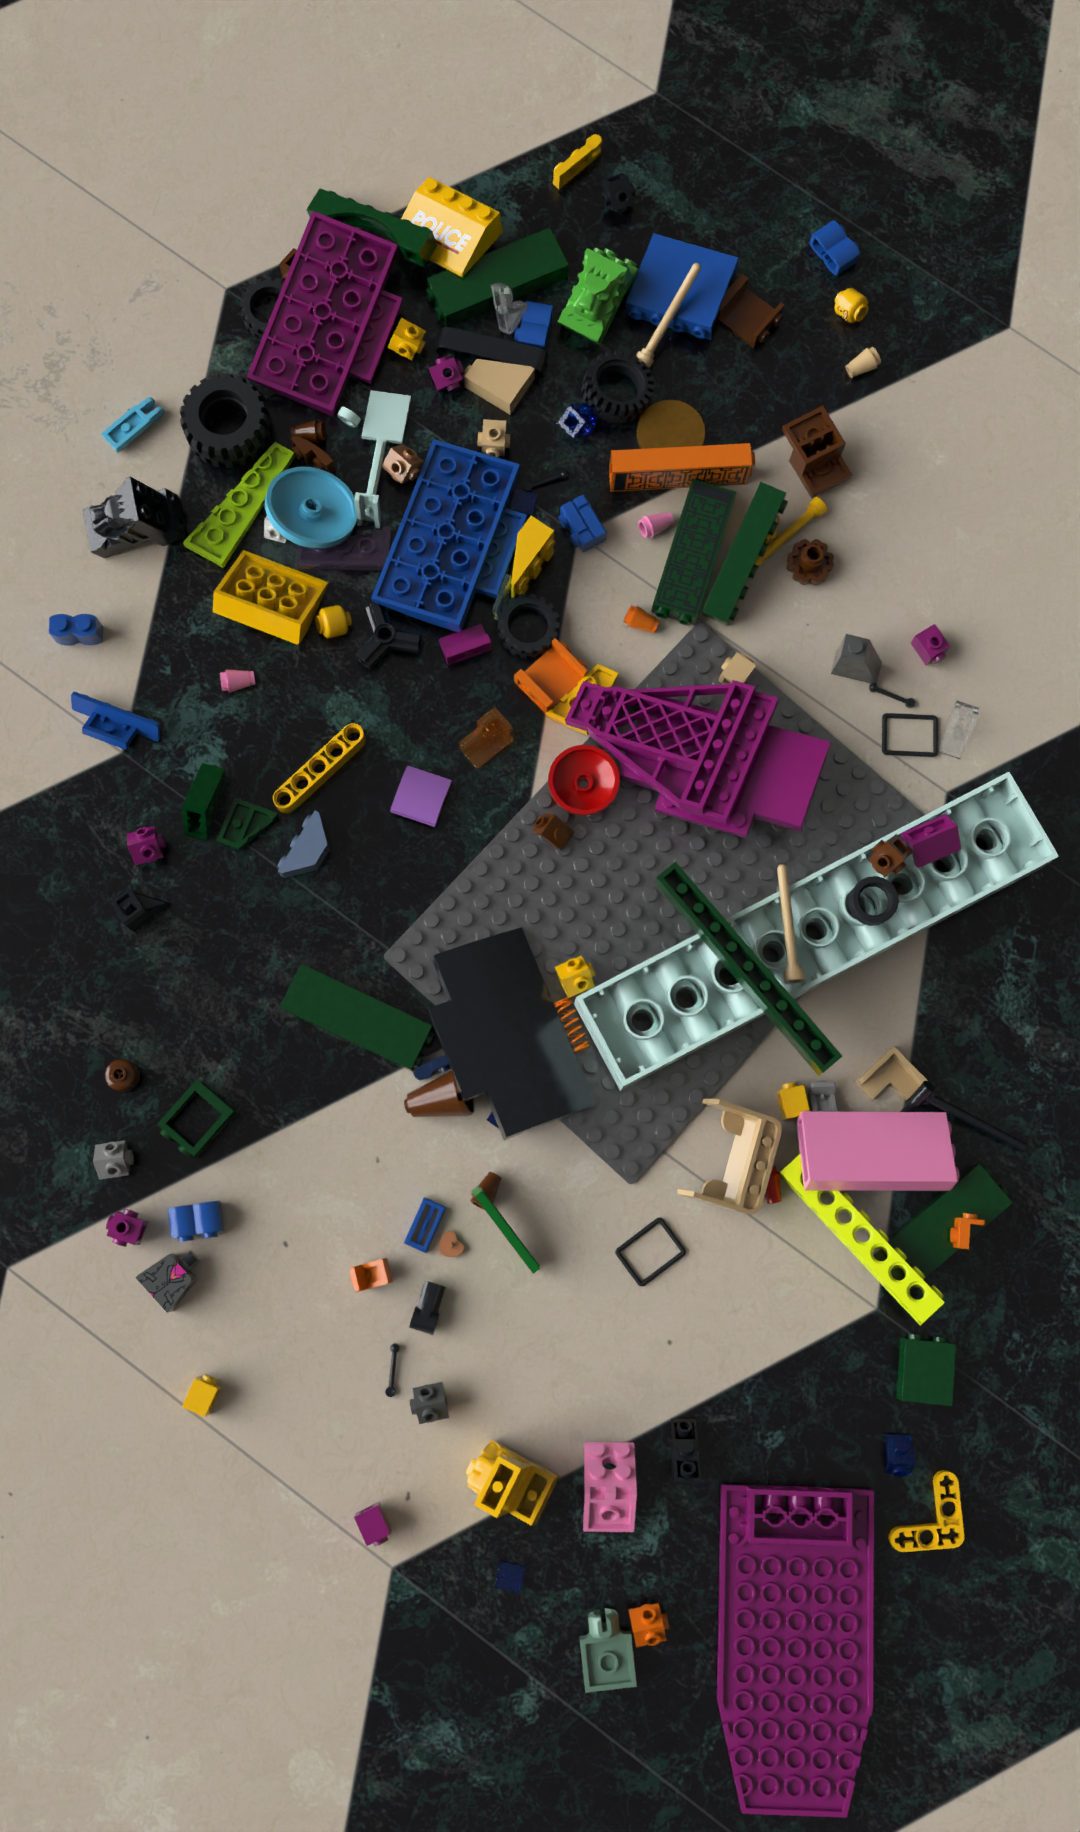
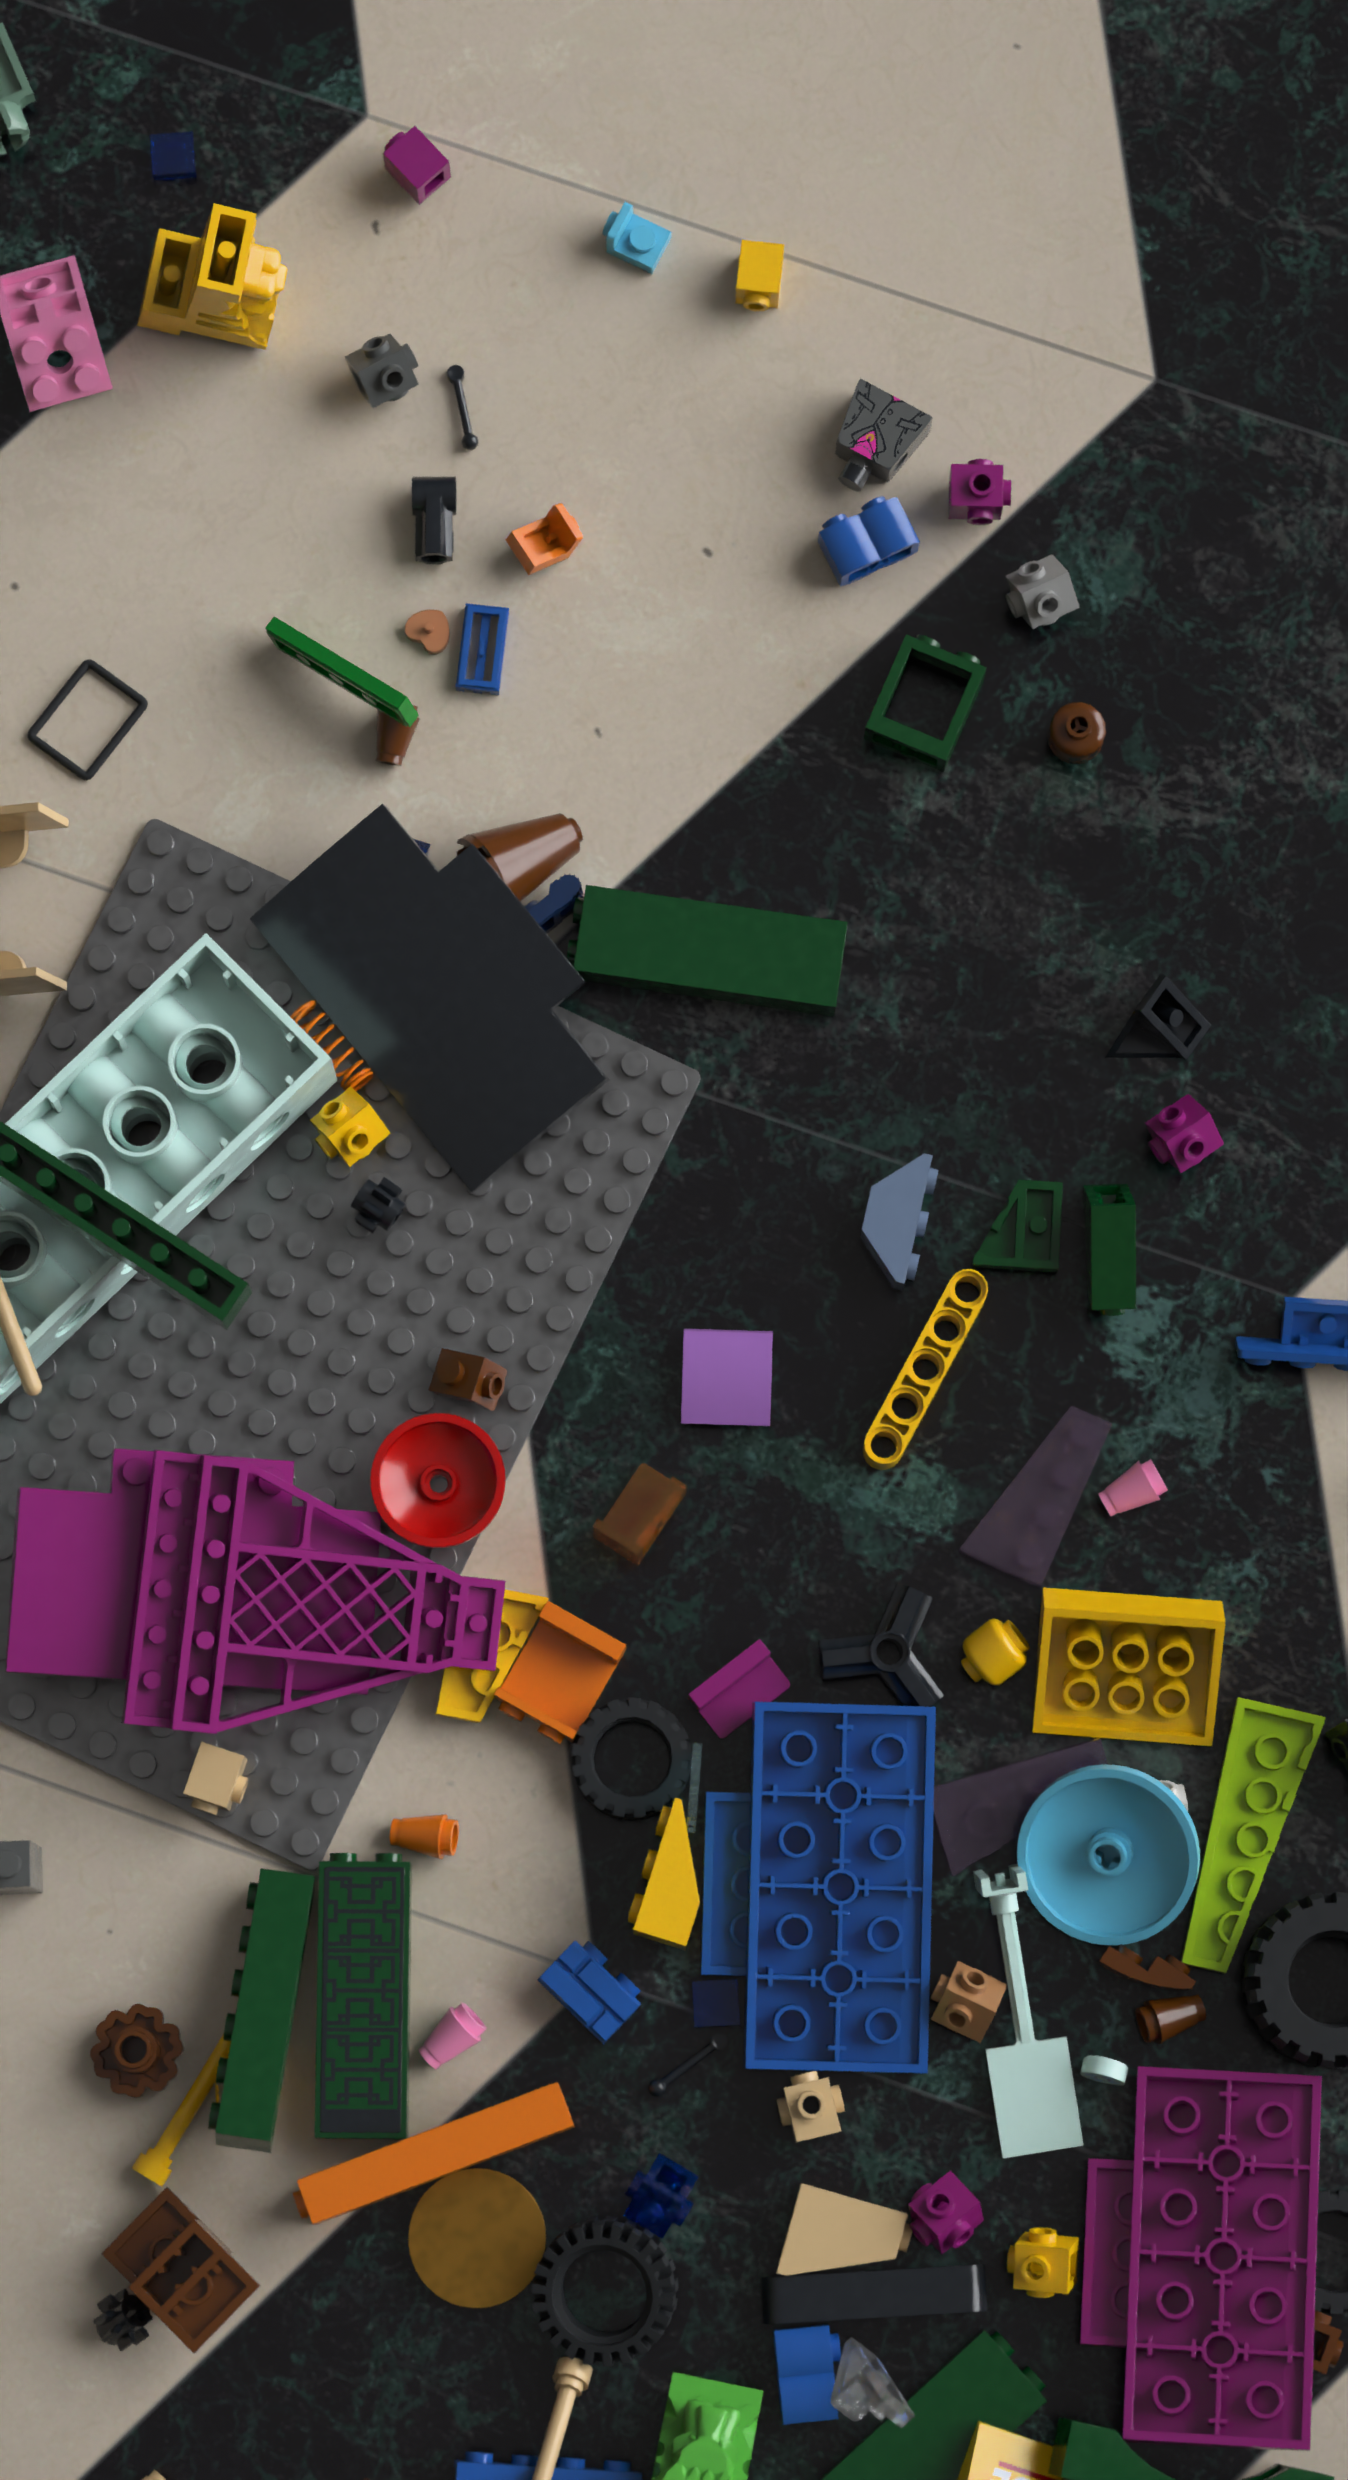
camera: 165 degrees right, 0 degrees up
(264, 1440) = (635, 239): none -> medium azure bracket
(289, 685) = (1035, 1509): none -> clear purple wing
(572, 932) = (378, 1205): none -> black gear
(853, 441) = (122, 2320): none -> black gear

